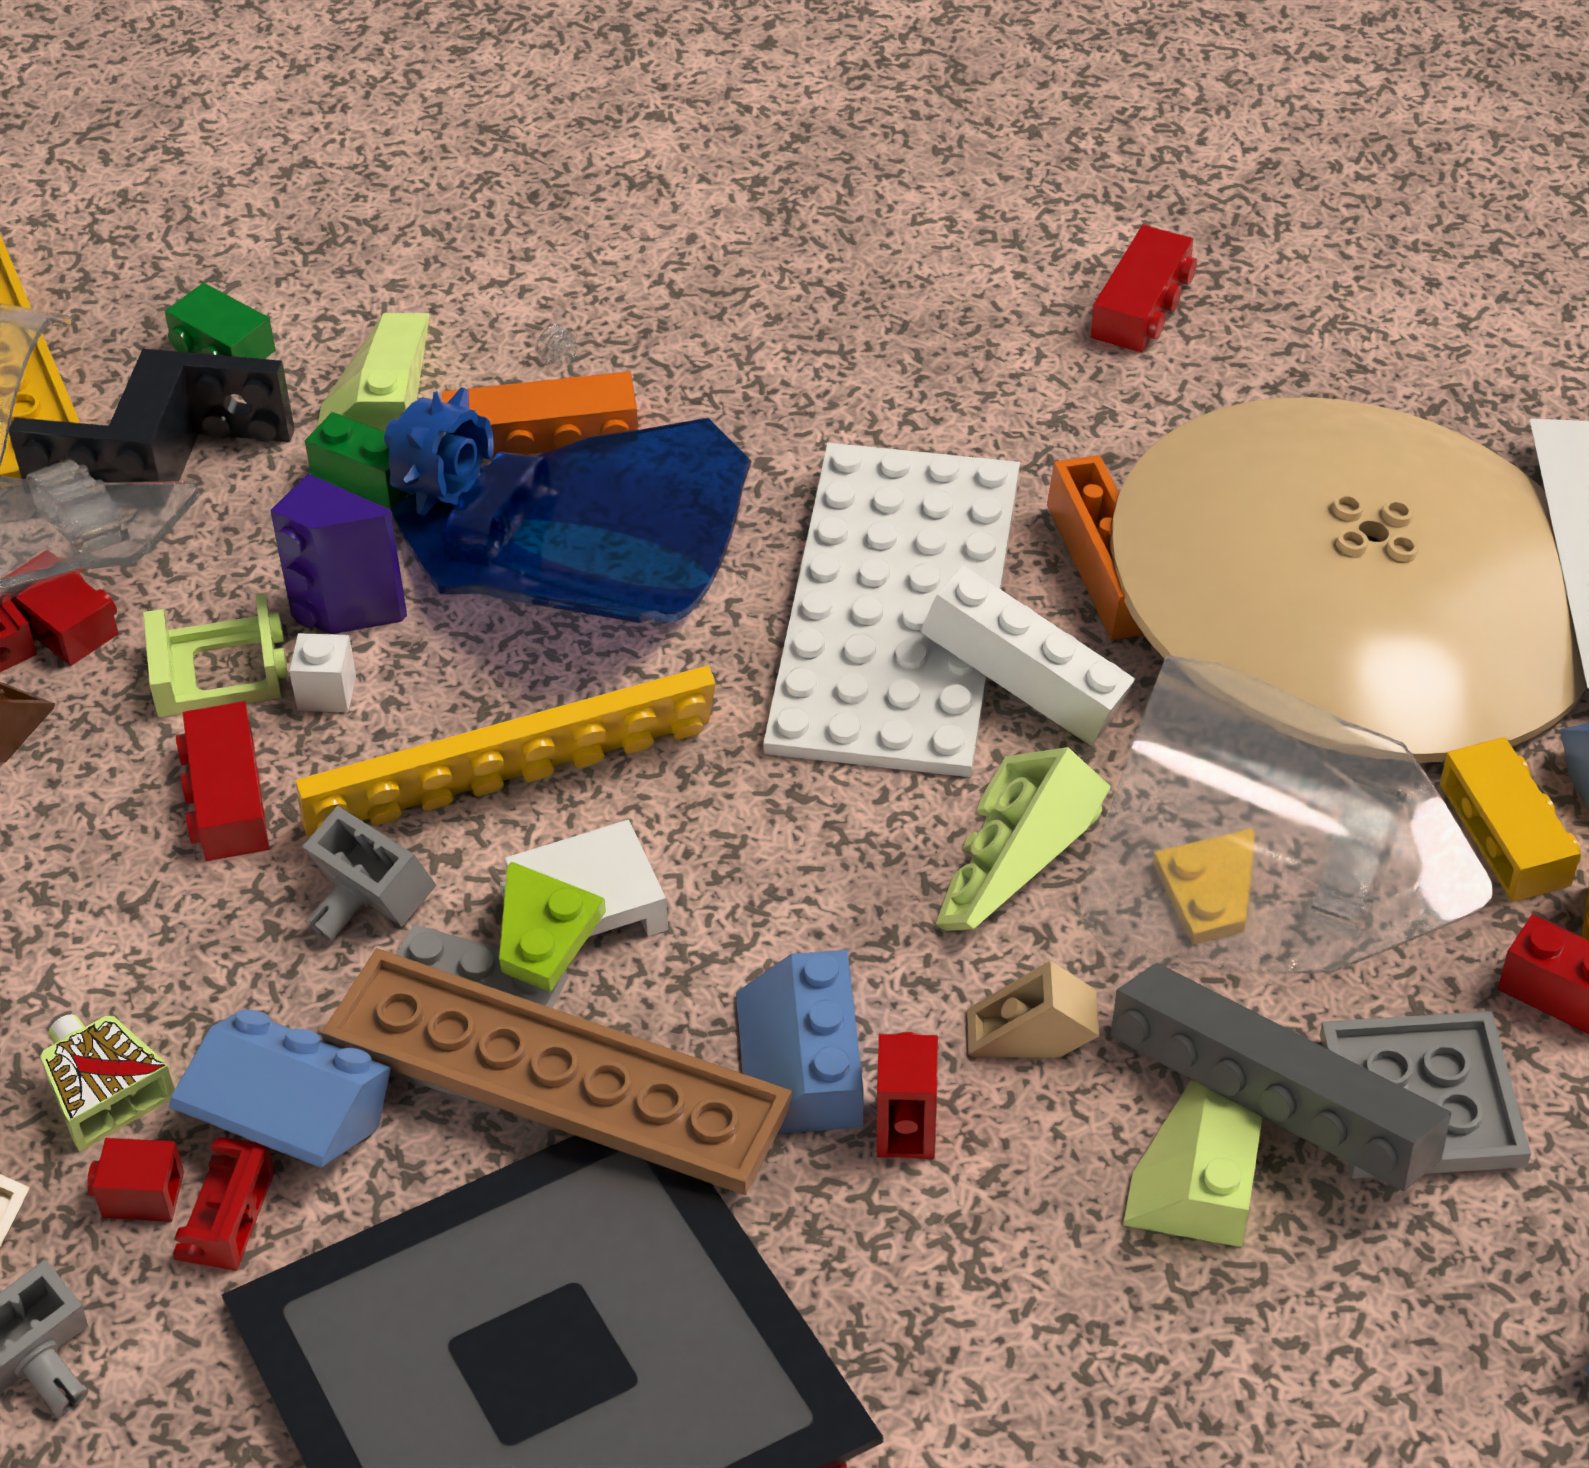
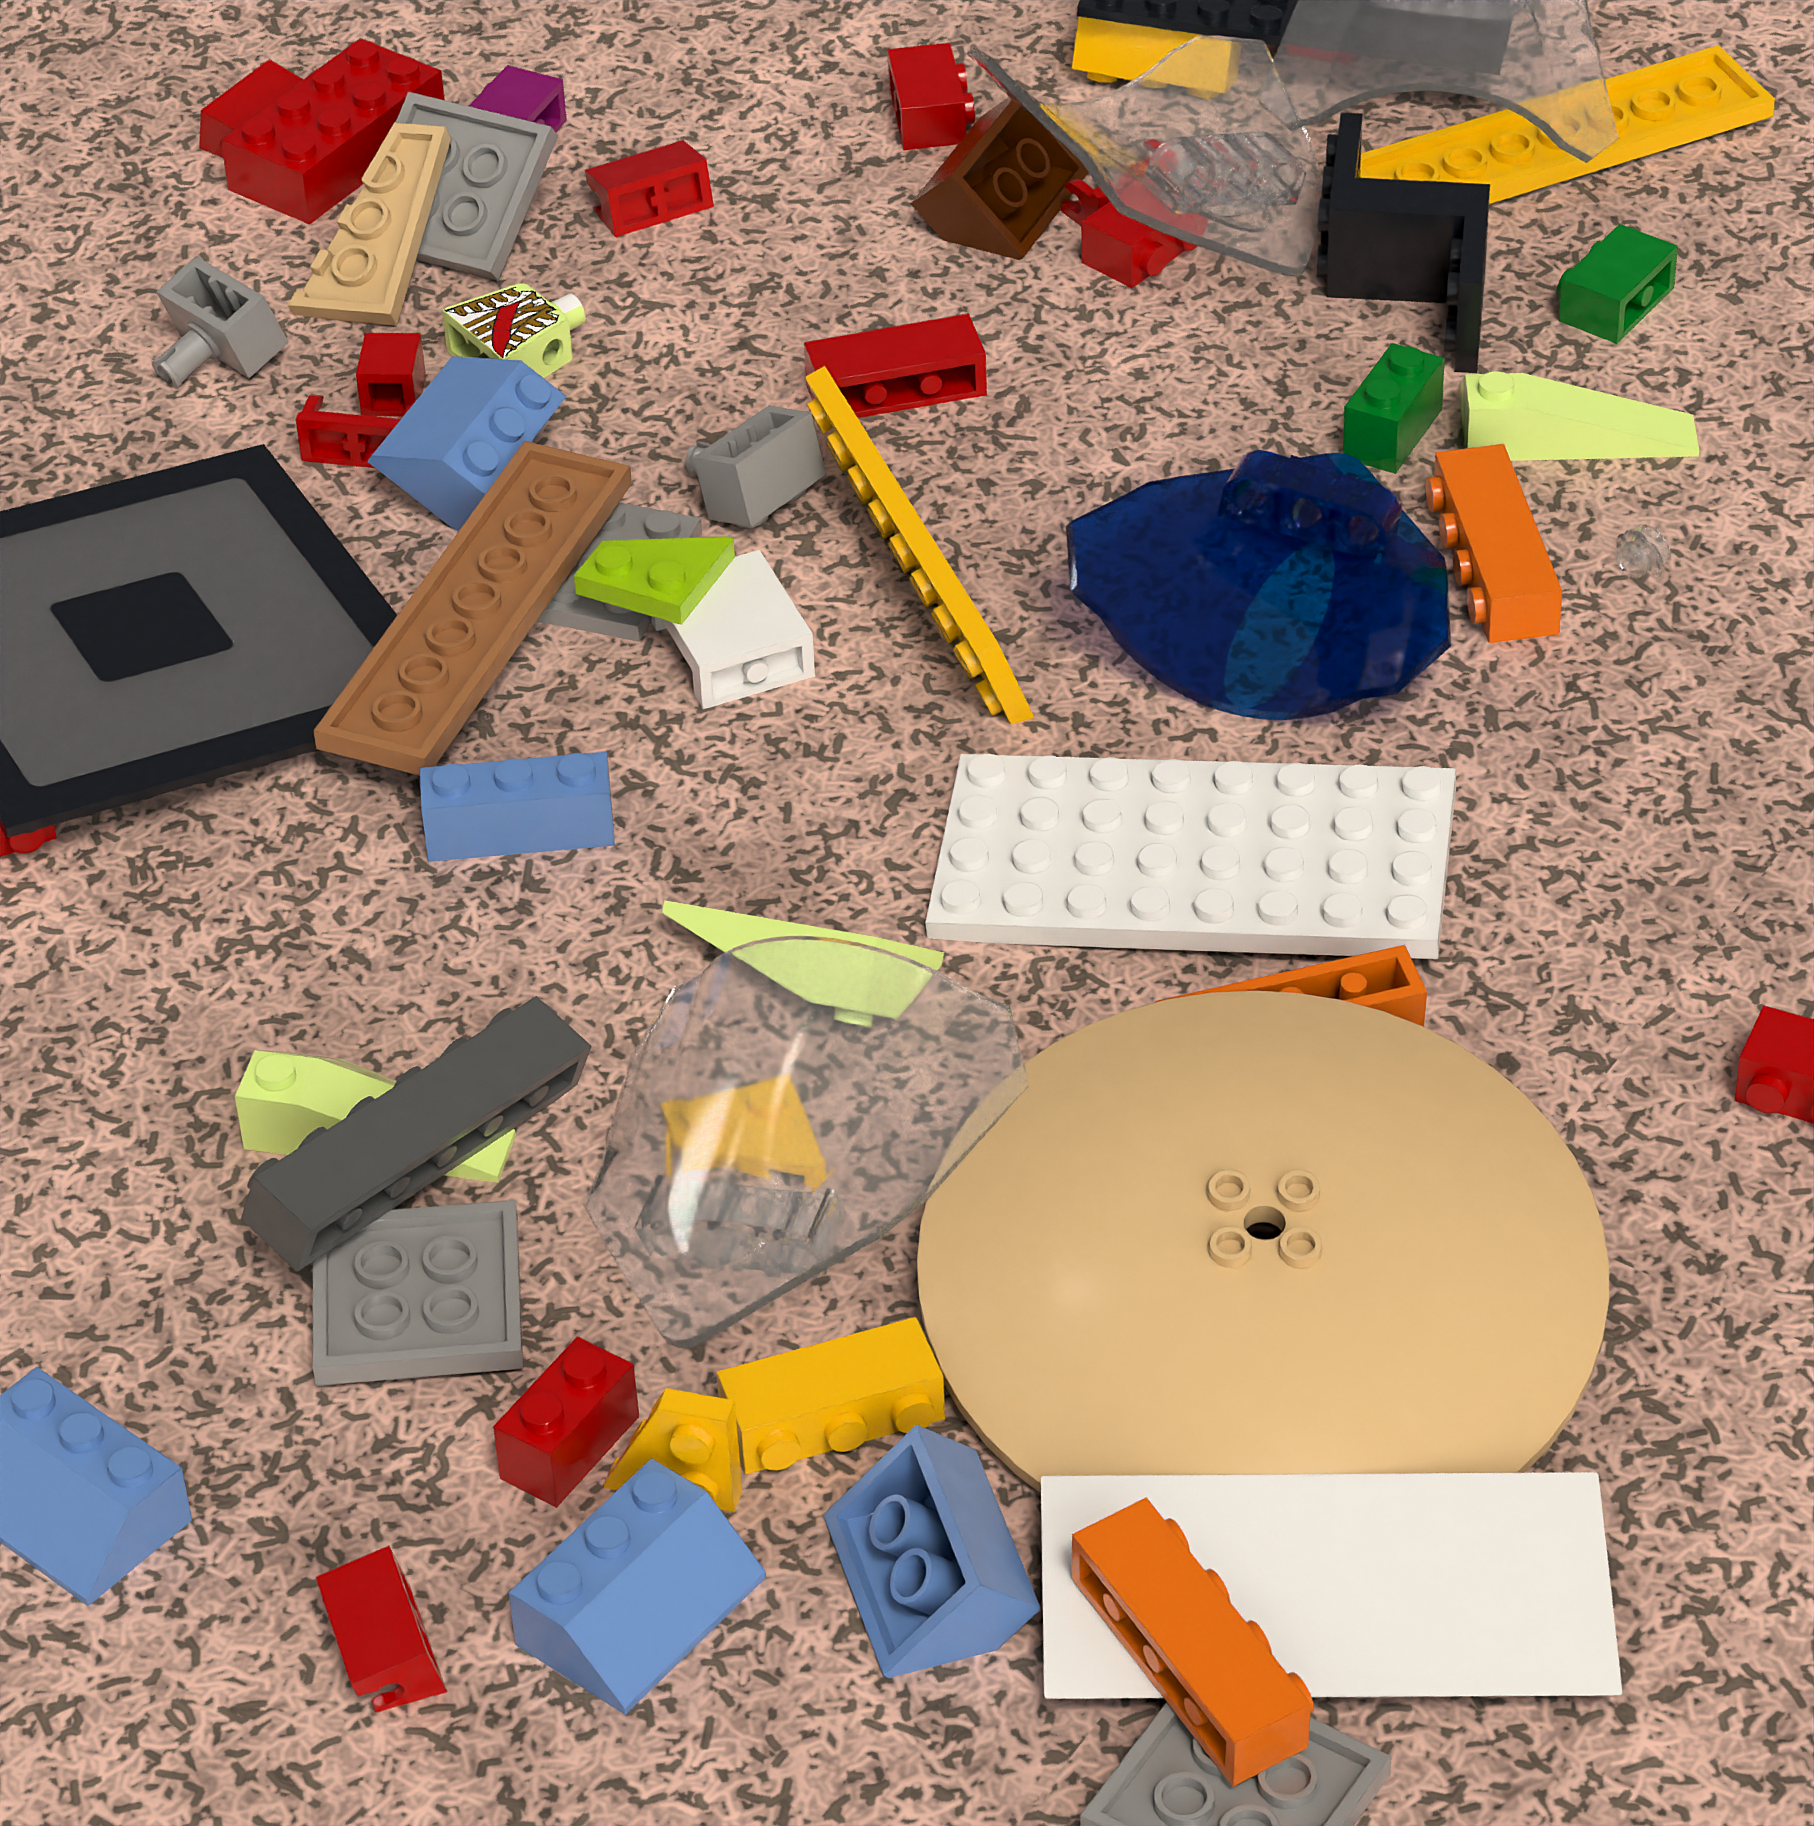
camera: 90 degrees right, 5 degrees down
(173, 653) = (1073, 315): yellowish green window -> none
(322, 672) = (1048, 413): white brick -> none
(338, 558) = (1181, 368): dark purple slope -> none
(437, 449) = (1379, 431): blue brick -> none
(907, 1095) = (418, 848): red brick -> none
(1027, 655) = (1074, 925): white brick -> none
(1034, 1016) = (539, 966): tan slope -> none

